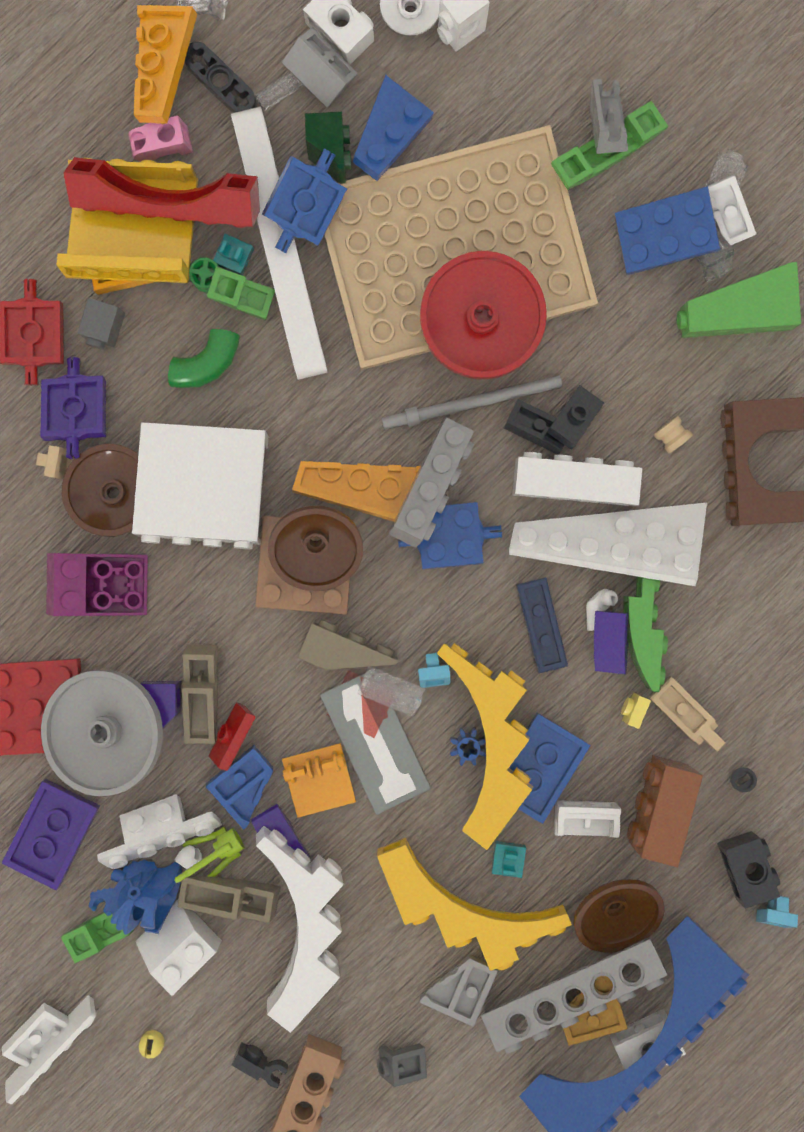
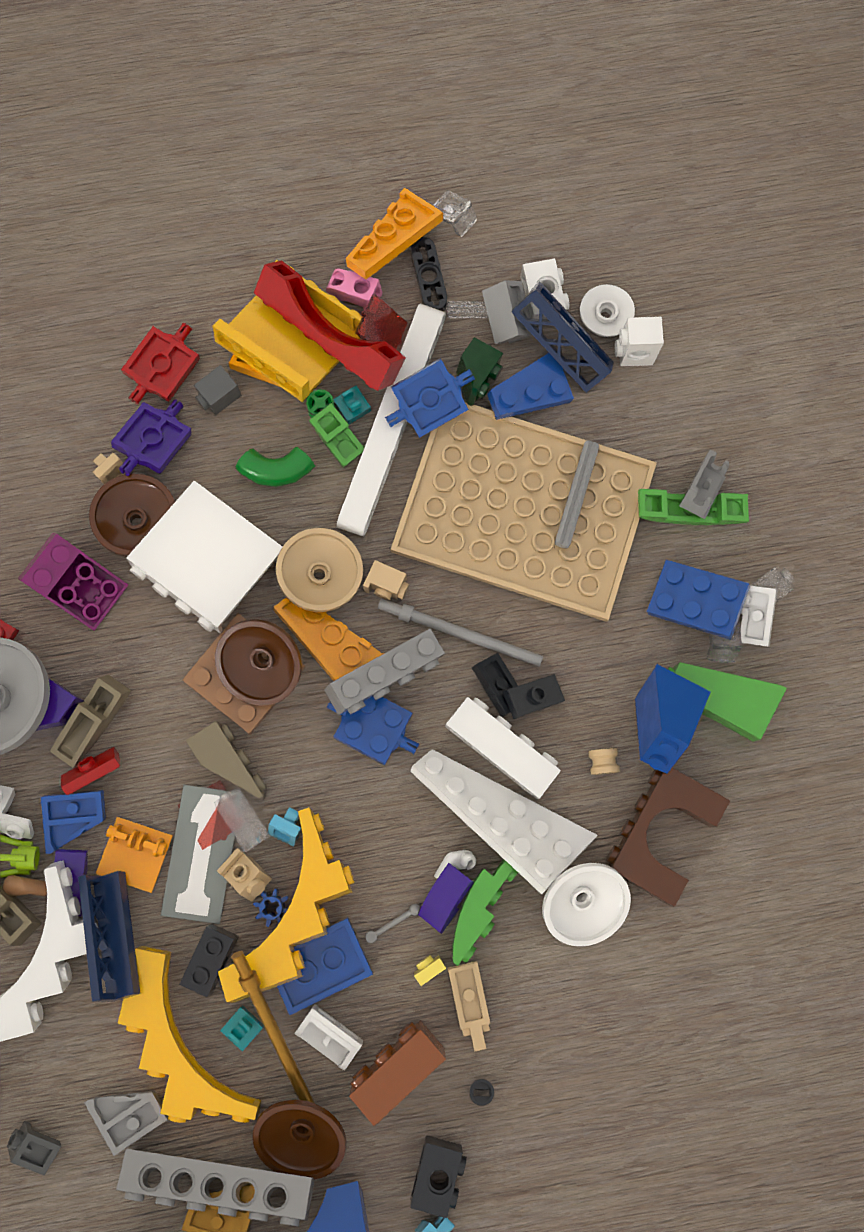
camera: 25 degrees right, 10 degrees down
(208, 158) = (381, 323): none -> clear red piece
(240, 870) = (19, 886): none -> medium nougat arm
(306, 409) = (322, 552): none -> tan dish
(350, 859) = (112, 936): none -> dark blue fence
(377, 400) = (386, 581): none -> tan brick
(388, 46) = (571, 330): none -> dark blue fence
(426, 735) = (244, 874): none -> tan brick
(444, 824) = (209, 958): none -> black brick
(483, 315) = (510, 568): red dish -> none
(496, 201) = (577, 494): none -> light grey axle
(499, 823) = (250, 983): none -> pearl gold bar
(542, 625) = (399, 848): dark blue tile -> none
(566, 714) = (371, 936): none -> light grey hinge
(709, 358) = (667, 717): none -> blue slope
(736, 568) = (592, 915): none -> white dish

